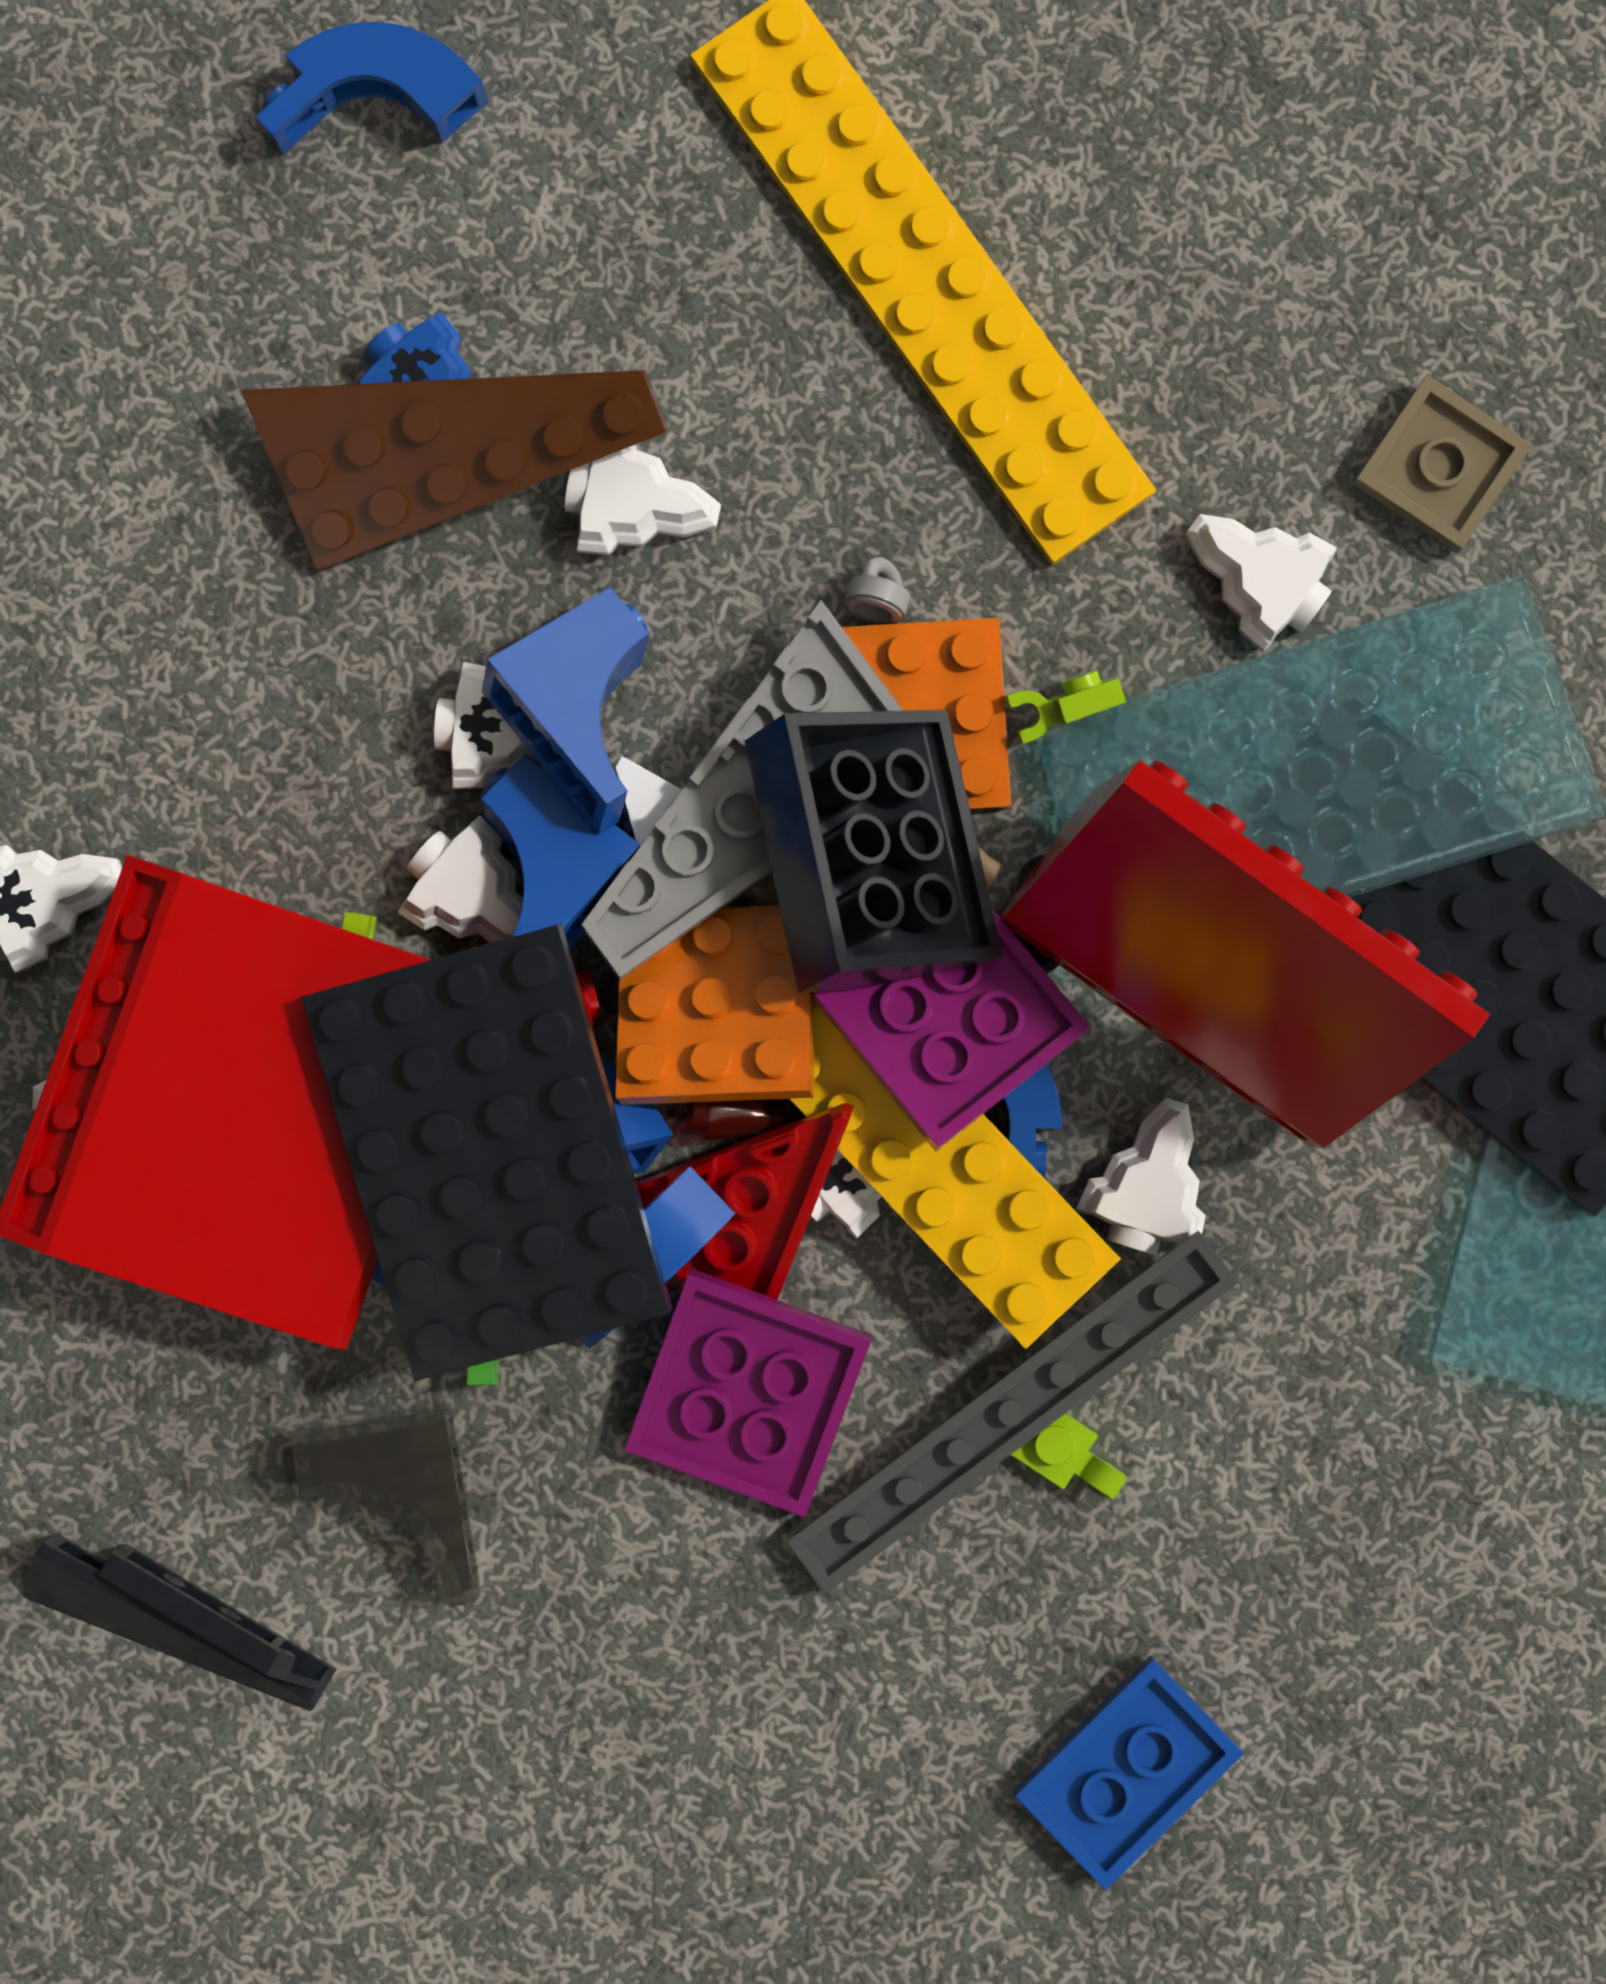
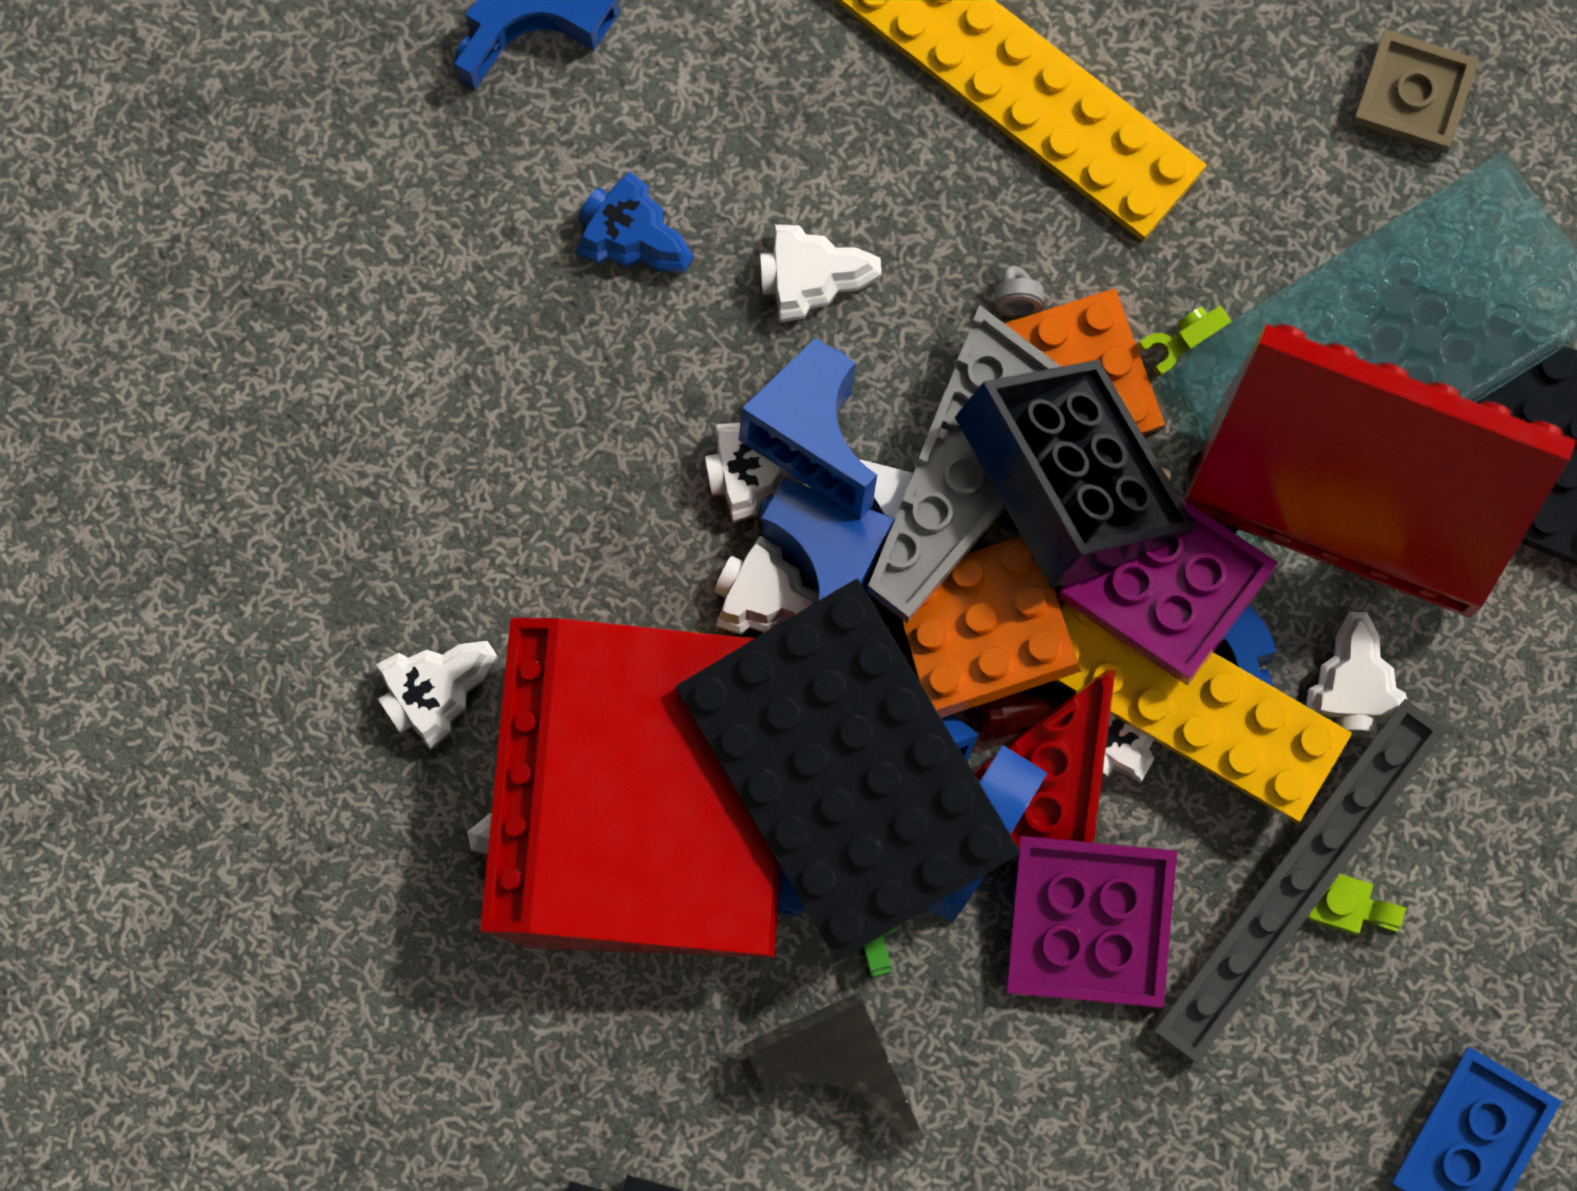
camera: 10 degrees left, 10 degrees down
(412, 453) = (634, 280): reddish brown wing -> none
(1263, 574) = (1307, 206): white rock -> none

